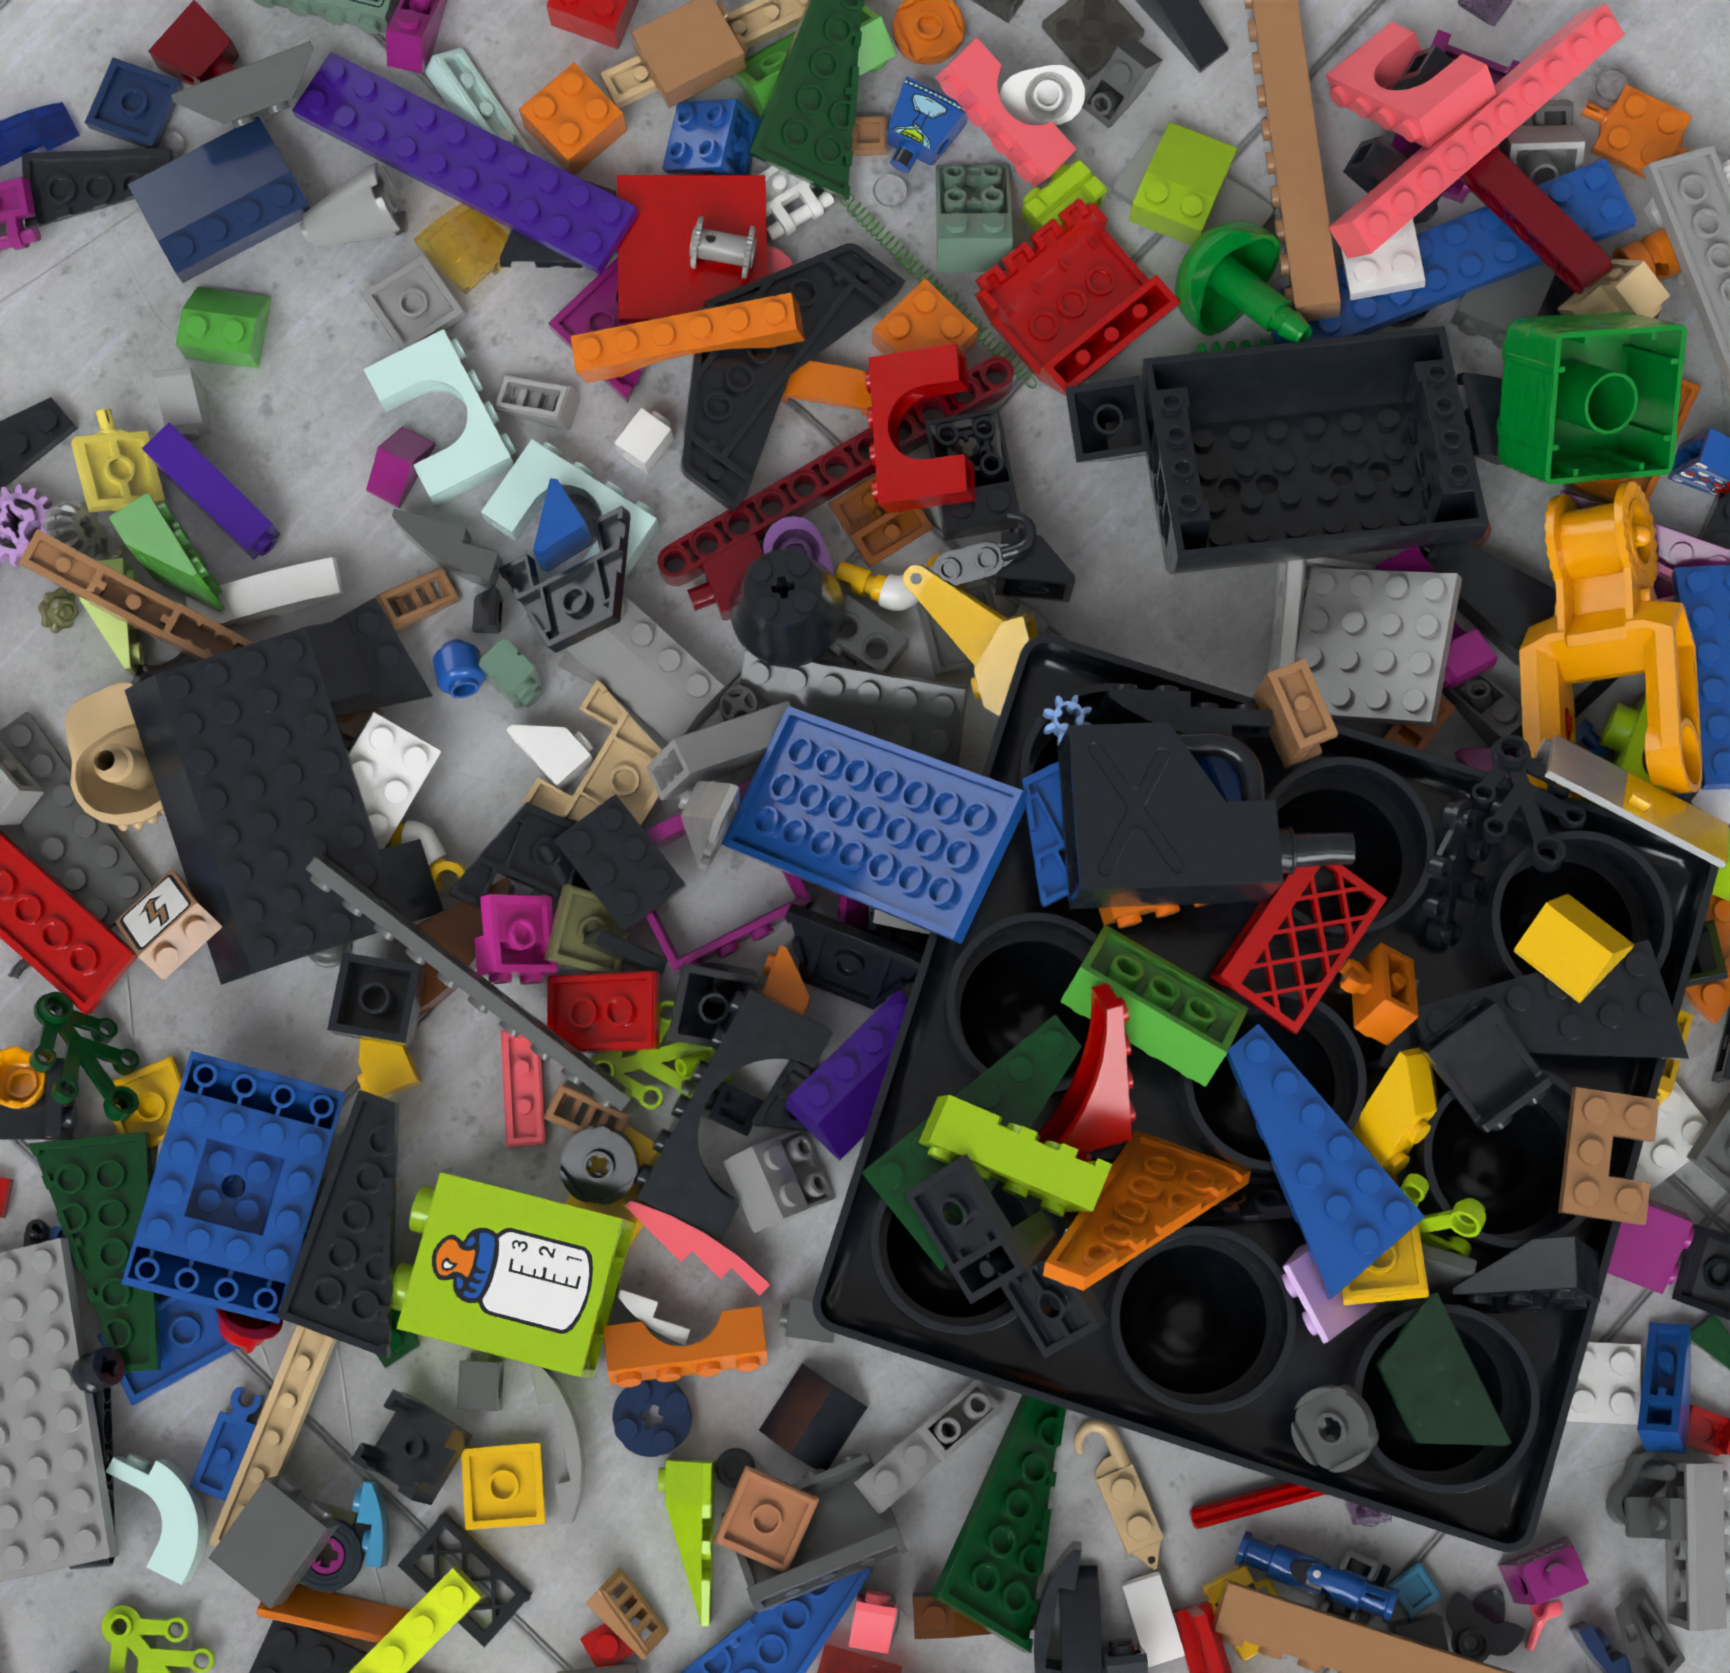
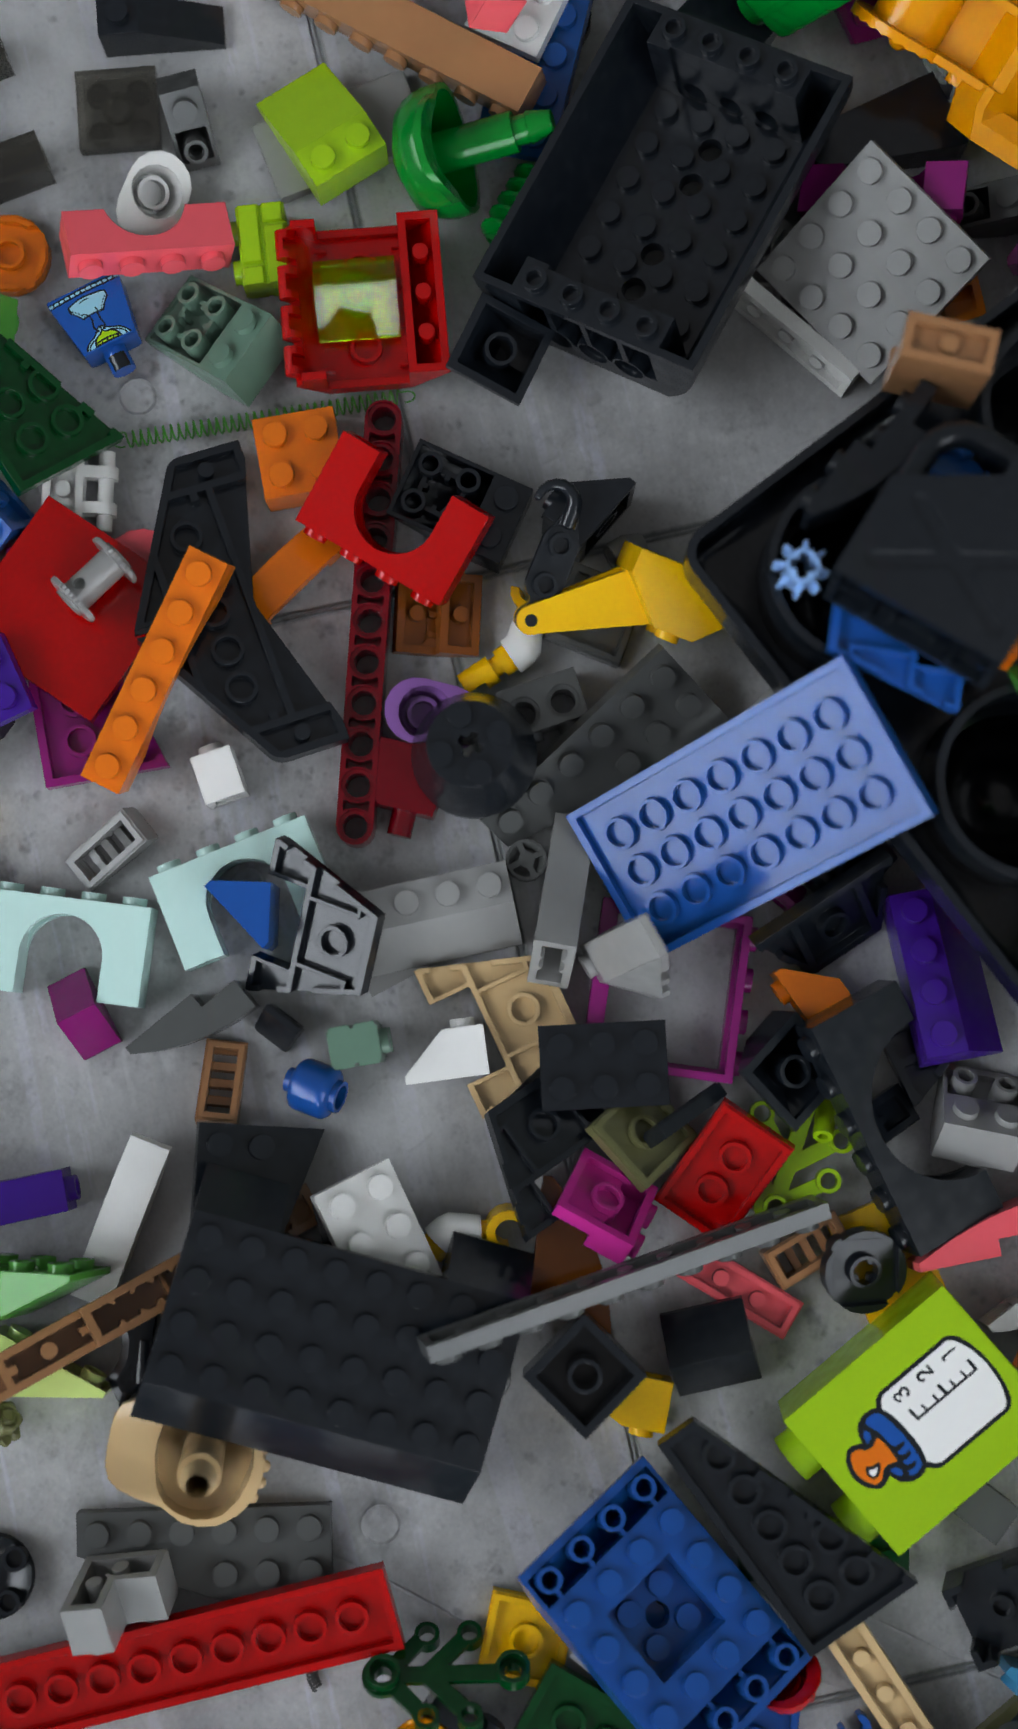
camera: 55 degrees left, 5 degrees up
(167, 925) = (376, 1520): panel -> none
(462, 1093) = (709, 1346): none -> black slope
(869, 136) = (76, 376): medium nougat tile -> none
(1072, 291) = (356, 299): none -> clear neon green slope

